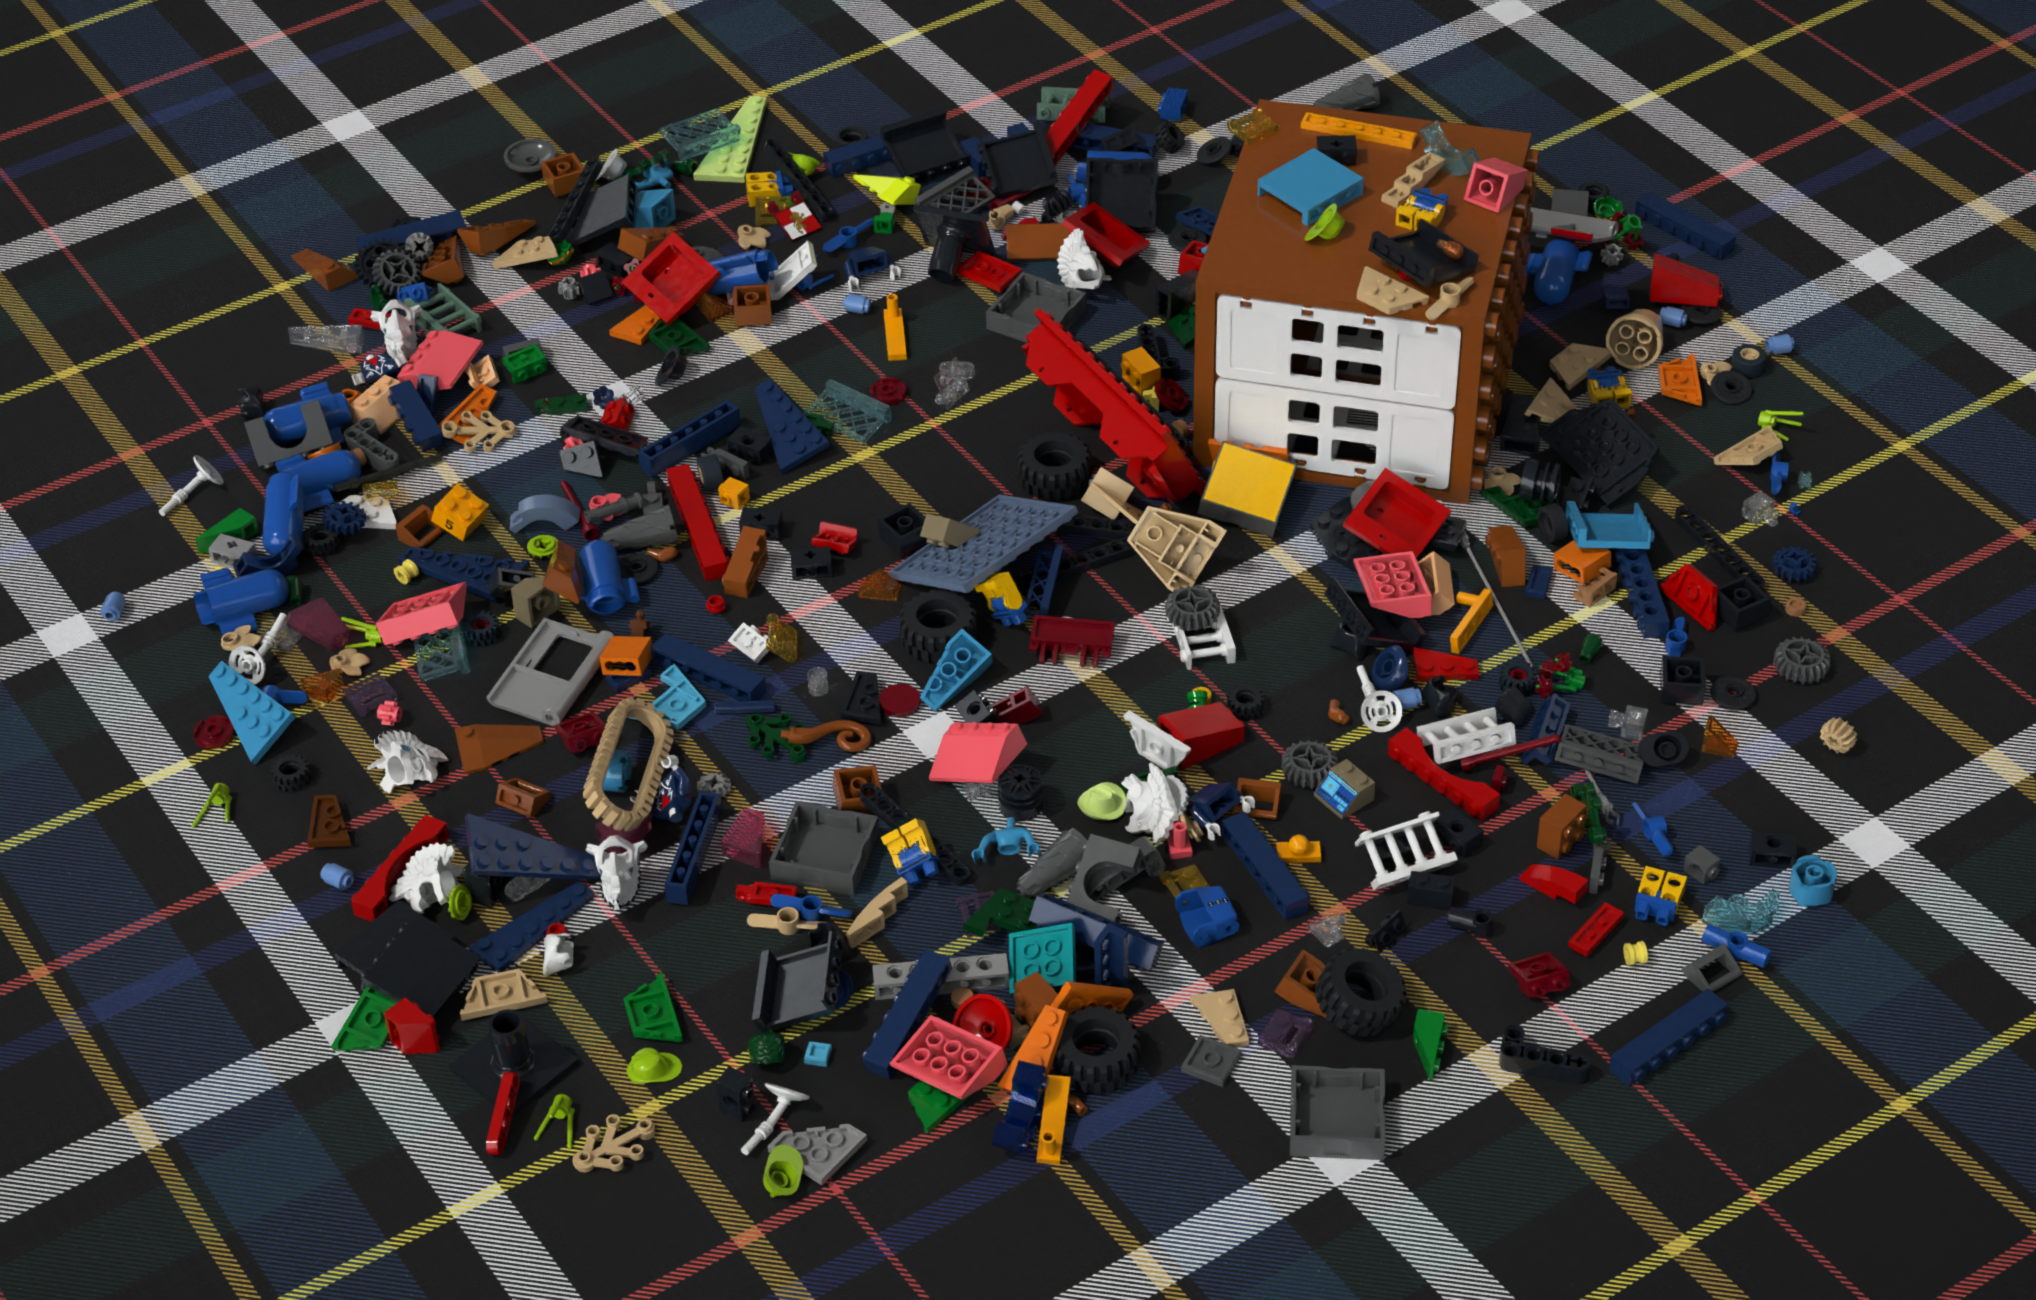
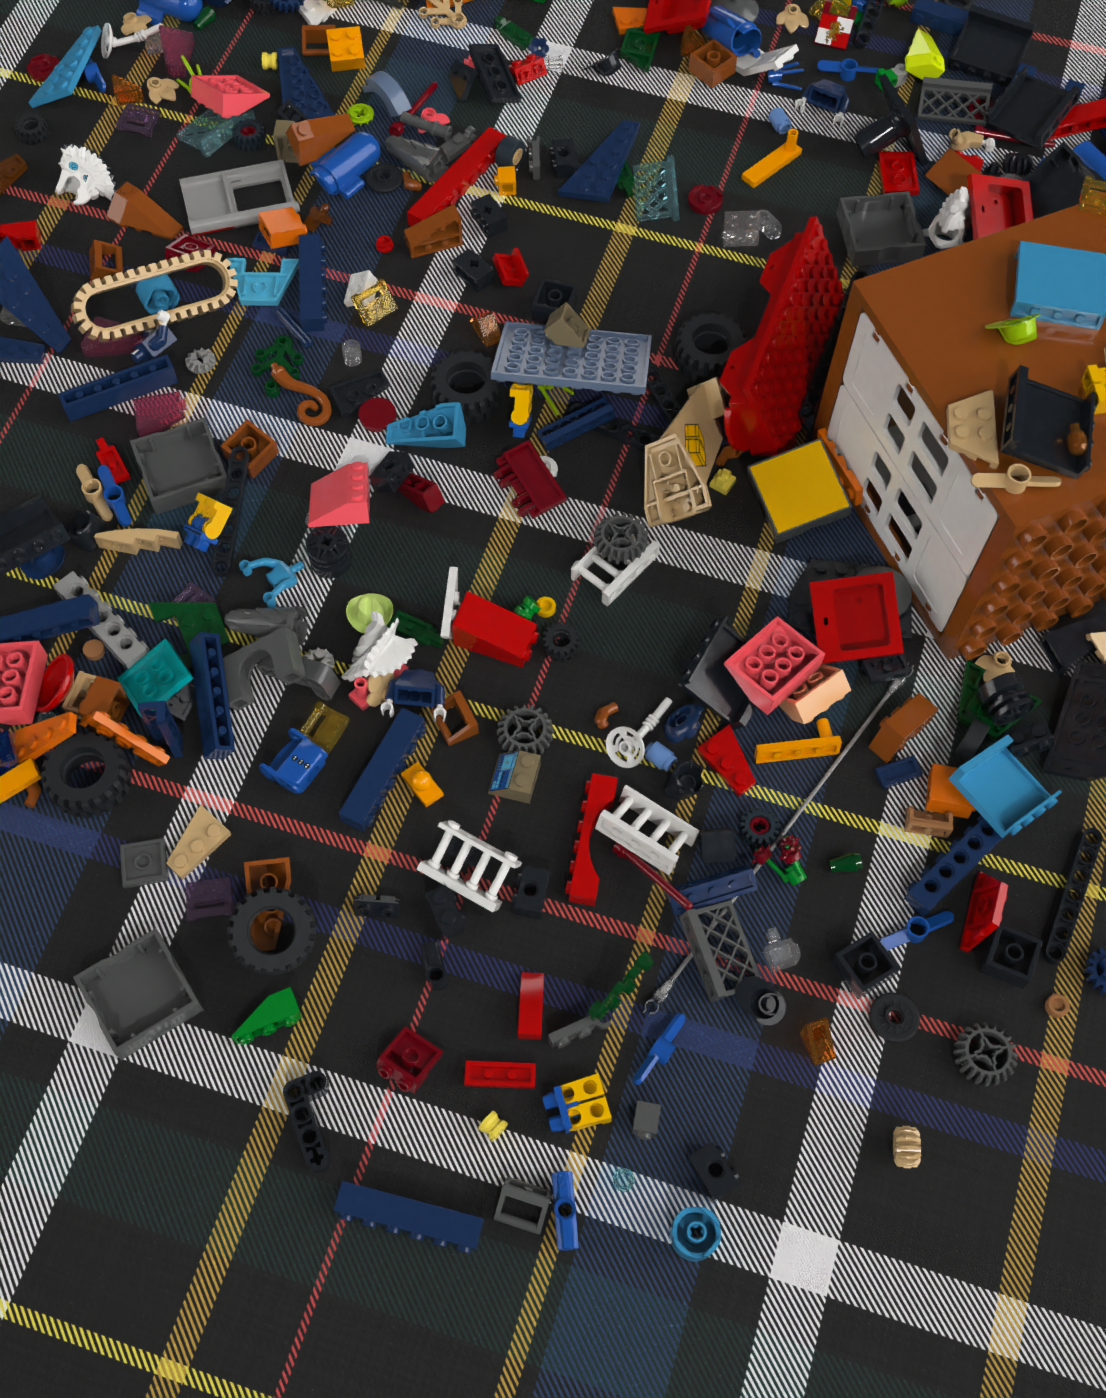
camera: 50 degrees right, 20 degrees up
(389, 713) = (125, 140): coral gear -> none
(618, 871) = (51, 362): white piece -> none
(689, 438) = (536, 119): dark blue brick -> none
(1328, 928) = (346, 858): clear slope -> none
(1499, 779) = (620, 887): dark red plate -> none
(1561, 826) = (593, 973): dark orange brick -> none
(1742, 918) = (605, 1199): clear light blue arch -> none

